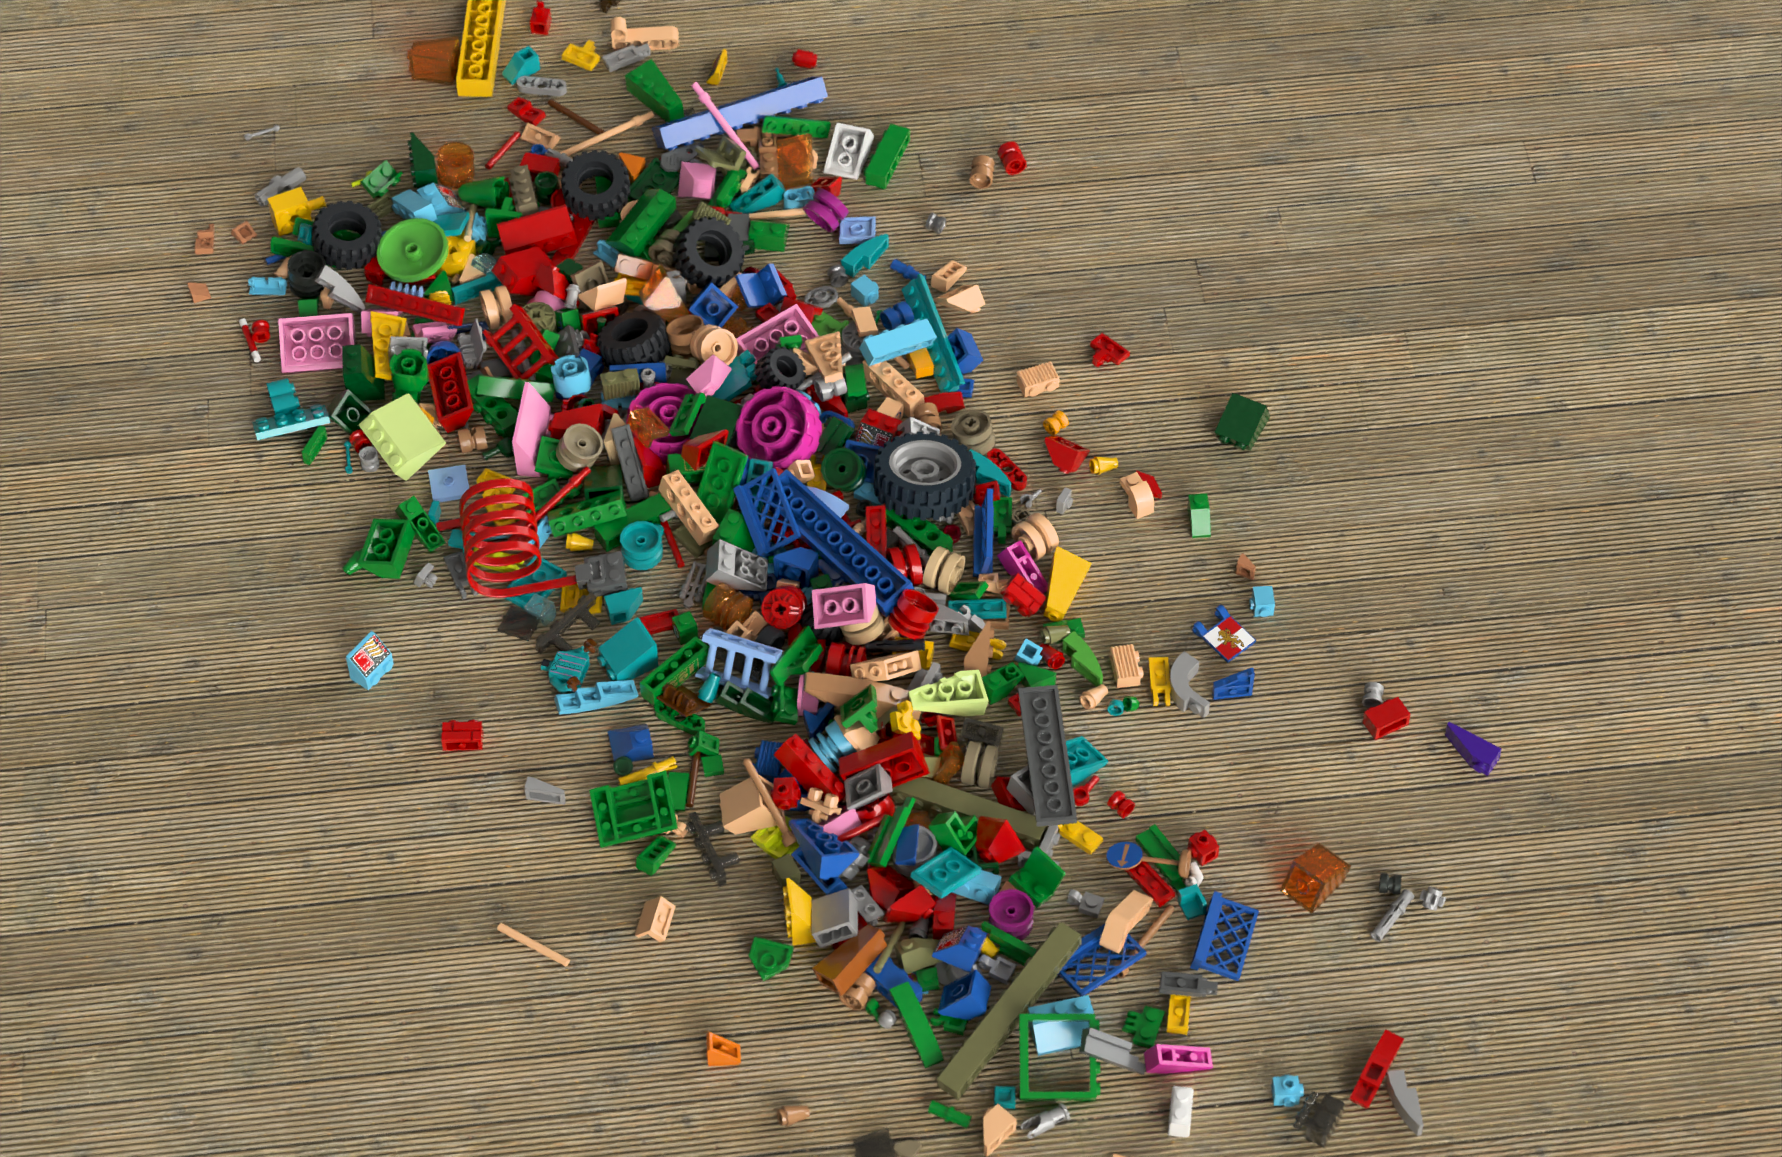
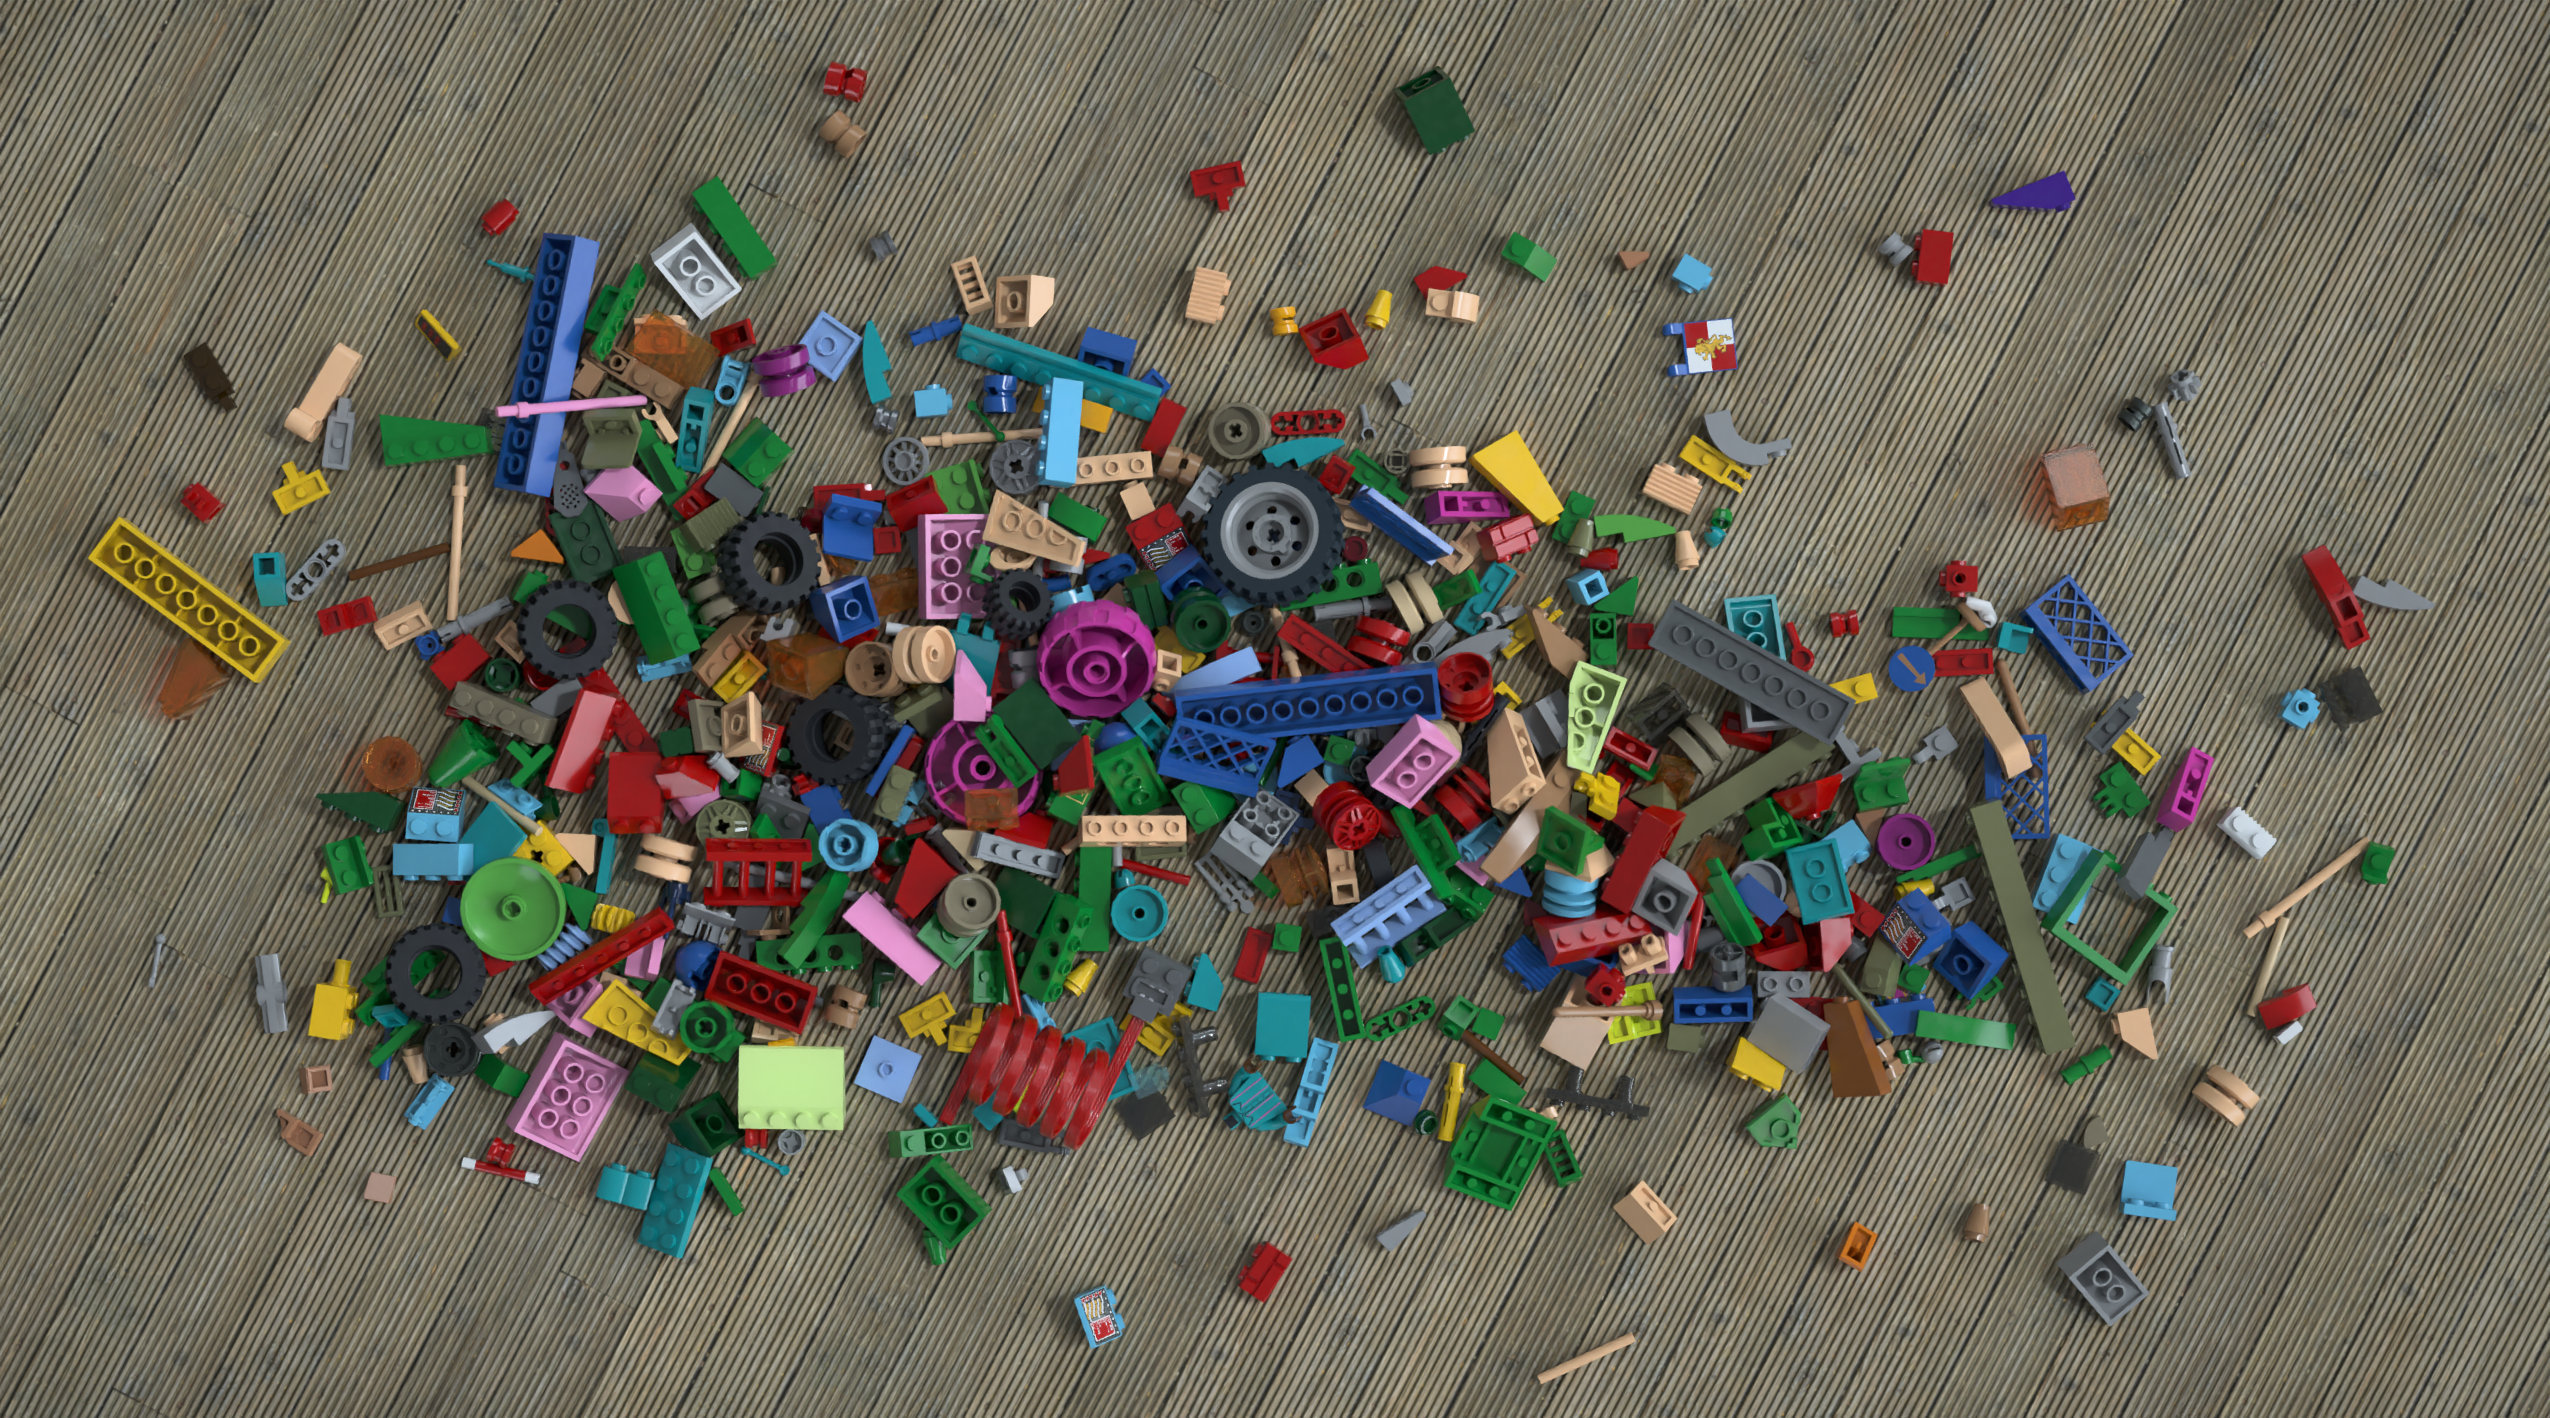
camera: 50 degrees left, 35 degrees up
(484, 262) = (580, 823): clear light blue slope -> none
(502, 150) = (393, 685): red bar -> none
(648, 377) = (904, 751): light grey pin -> none
(682, 700) = (1386, 1004): reddish brown hinge -> none
(822, 850) = (1707, 993): blue wedge -> none
(864, 321) = (1003, 450): light nougat tile -> none
(1234, 685) = (1784, 382): blue wing -> none

